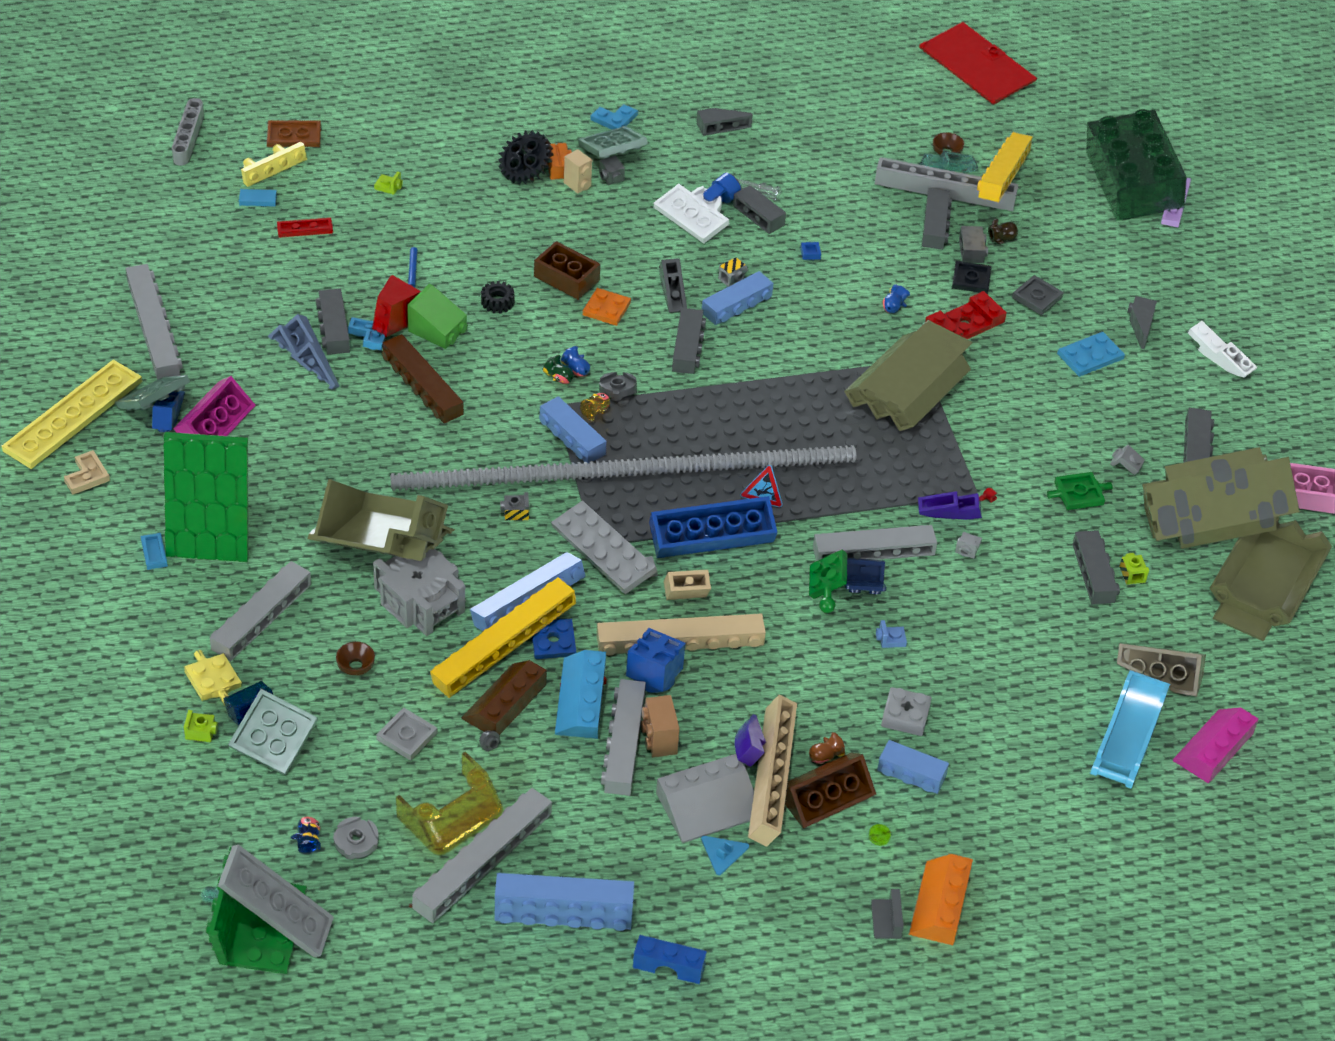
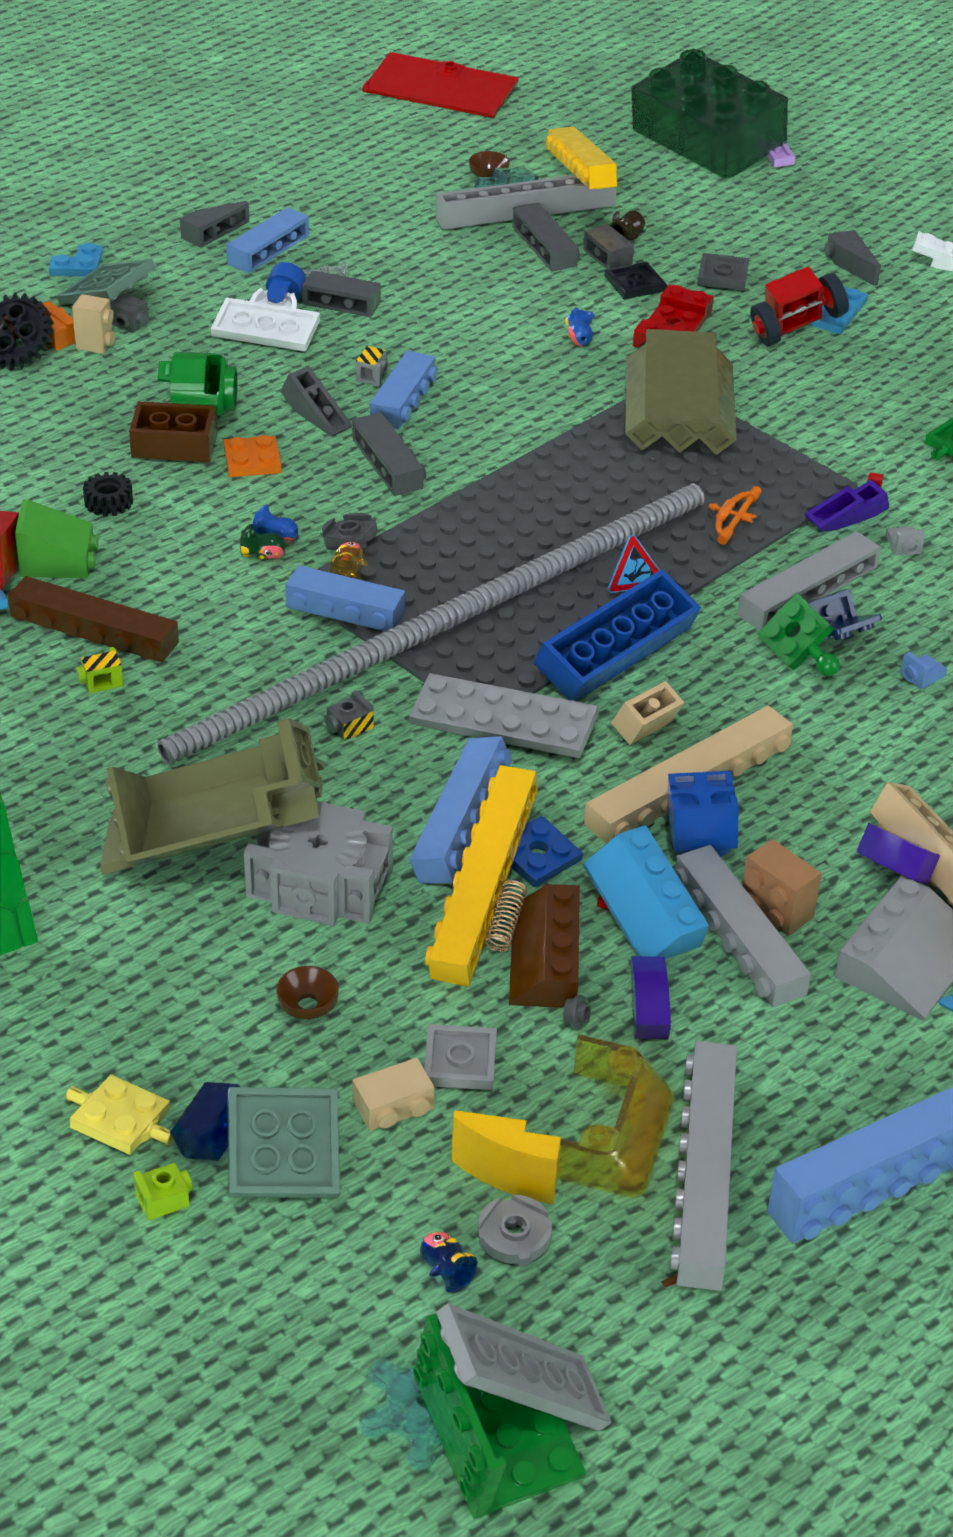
camera: 30 degrees left, 5 degrees down
(260, 610) = (117, 994): light grey brick -> none
(353, 736) = (393, 1094): none -> tan brick
(379, 798) = (506, 1155): none -> yellow slope
(400, 414) = (100, 671): none -> lime brick
(479, 677) = (509, 894): none -> tan piece
(535, 752) = (650, 998): none -> dark purple slope
(603, 243) = (201, 380): none -> green piece
(746, 148) = (267, 240): none -> medium blue brick
(810, 250) = (438, 314): blue plate -> none
(871, 480) = (727, 508): none -> orange piece
(1050, 342) = (797, 302): none -> brick

